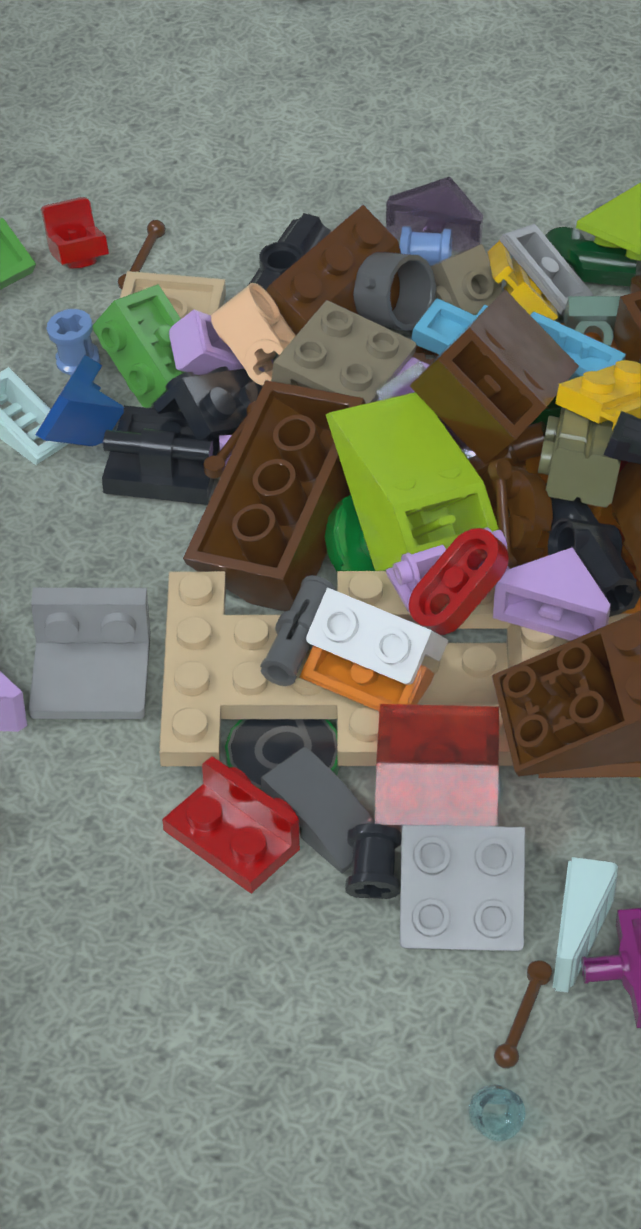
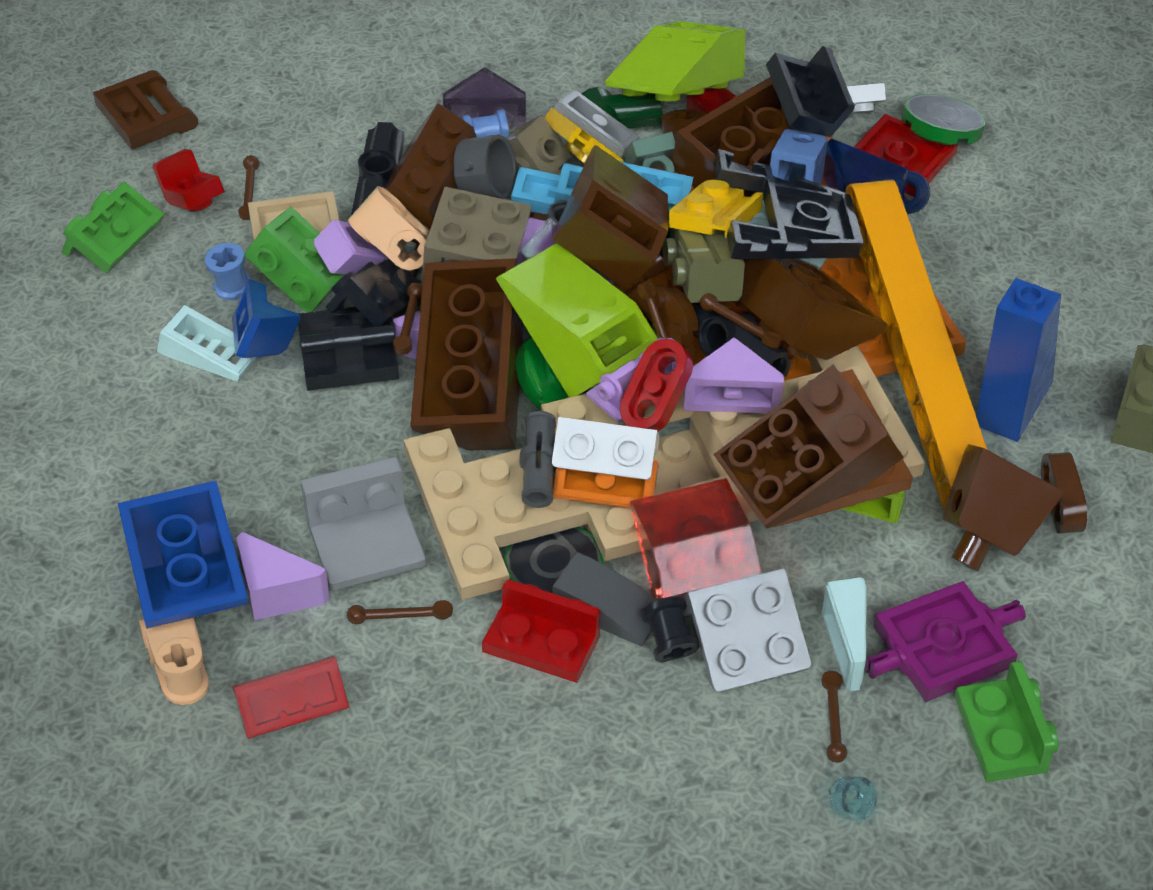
camera: 20 degrees left, 0 degrees up
(54, 150) = (134, 114): none -> reddish brown plate
(138, 771) = (441, 610): none -> reddish brown hinge
(619, 560) = (710, 303): none -> reddish brown hinge

